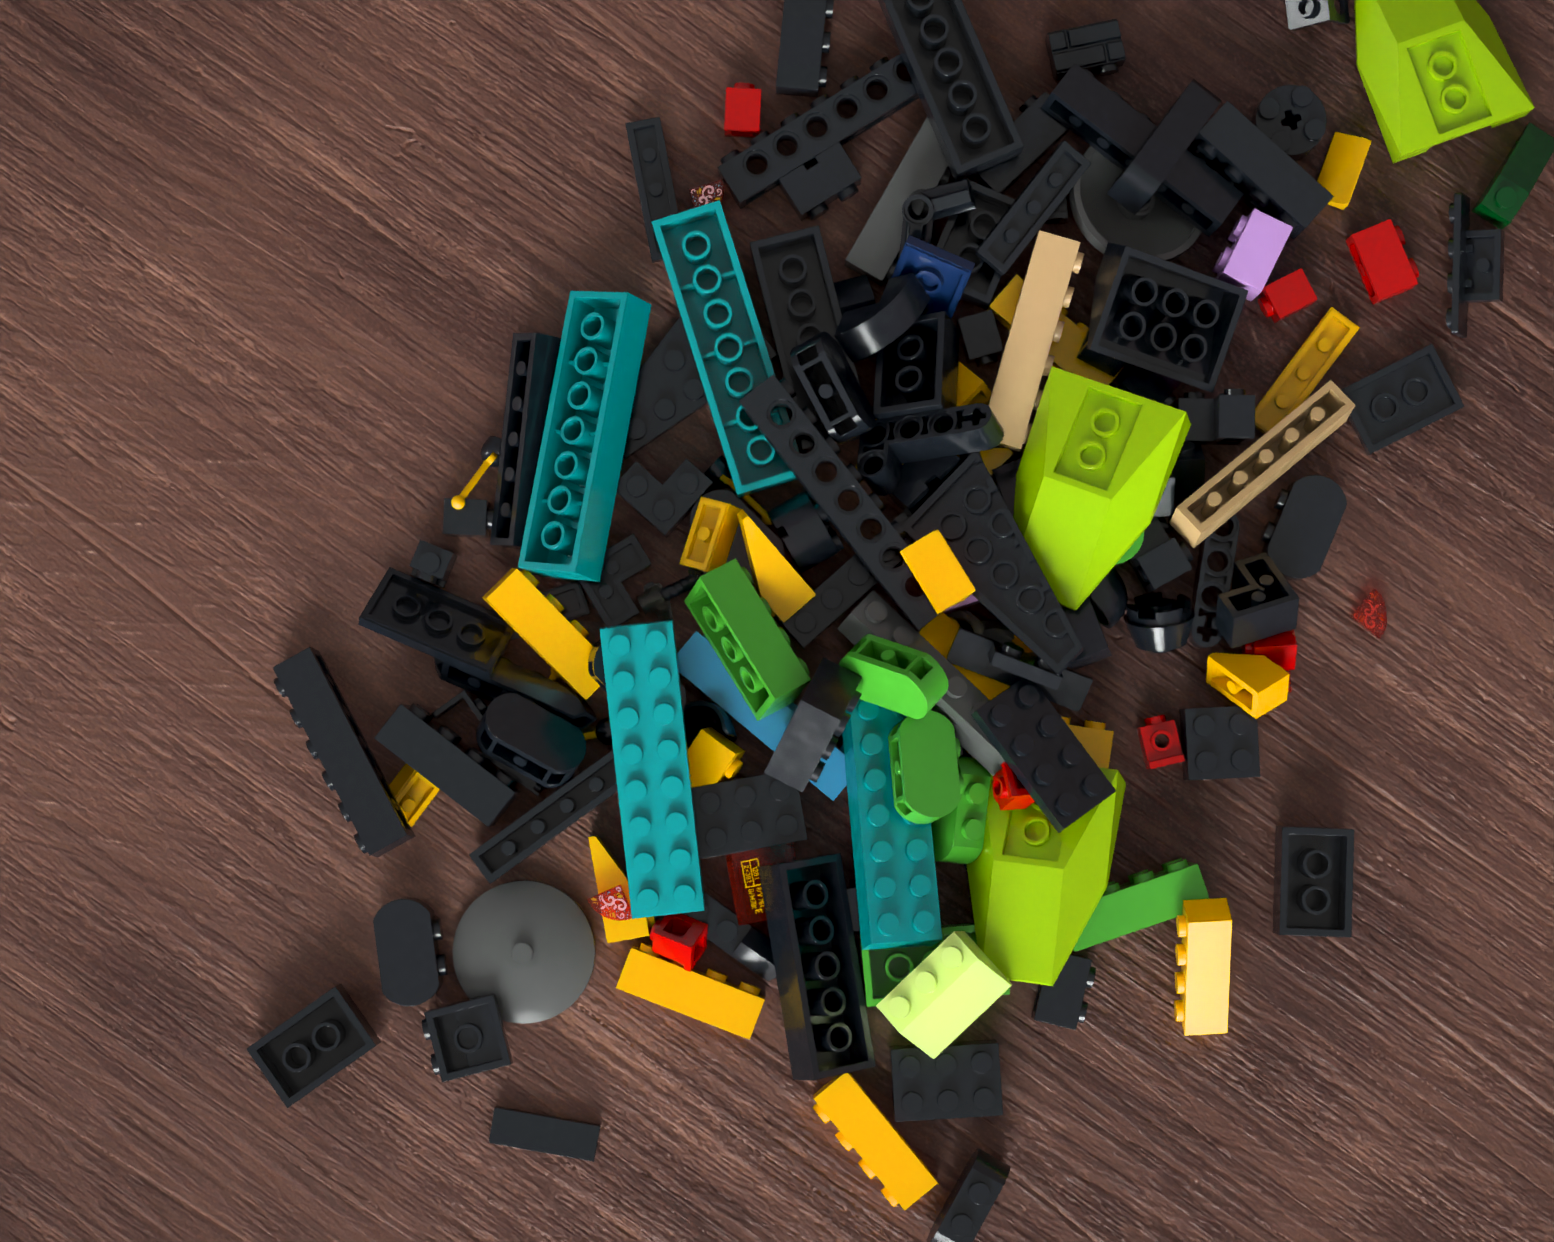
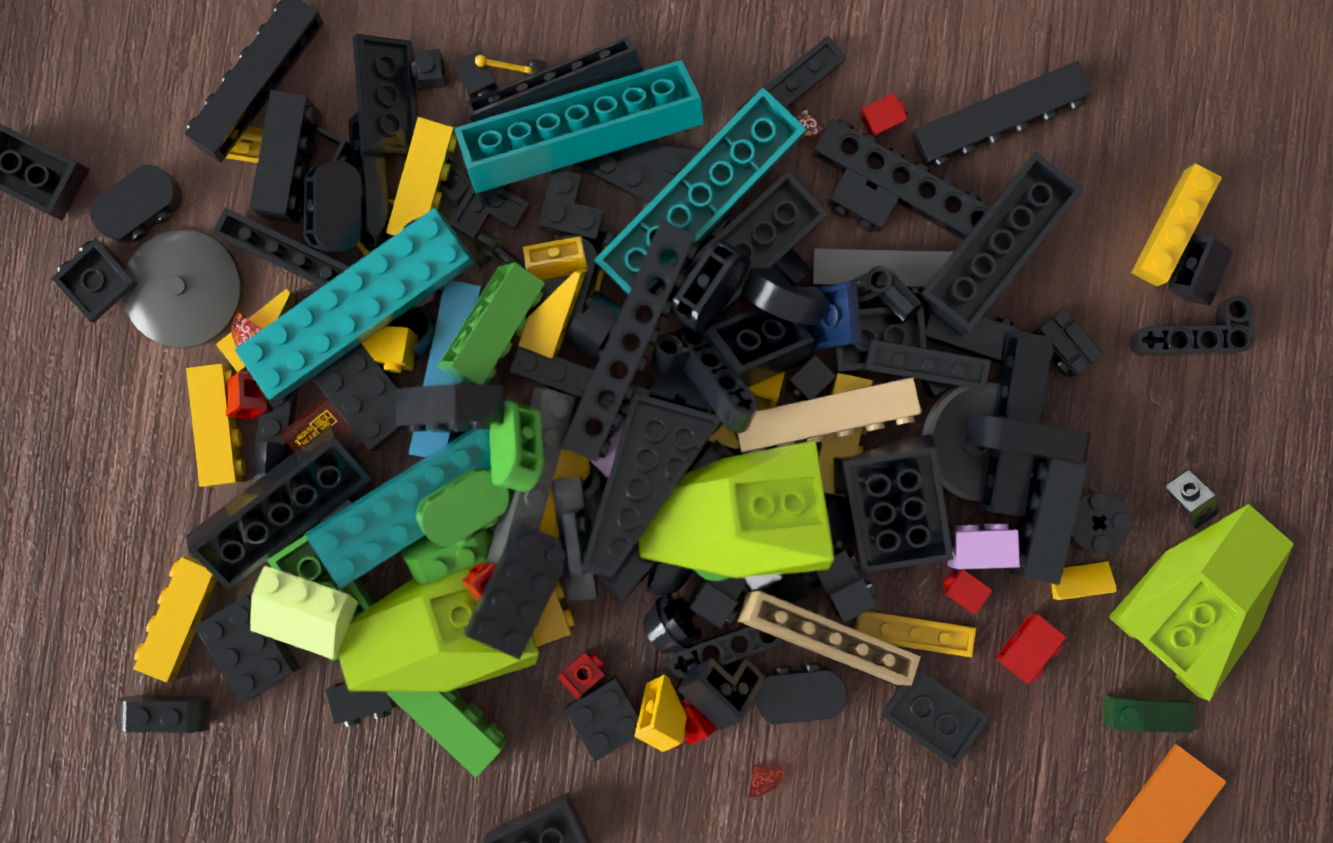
camera: 60 degrees right, 0 degrees up
(544, 1133) = (57, 375): black tile -> none
(938, 571) = (611, 436): yellow slope -> none
(1204, 966) = (429, 796): yellow brick -> none
(1476, 265) = (1065, 720): black bracket -> none

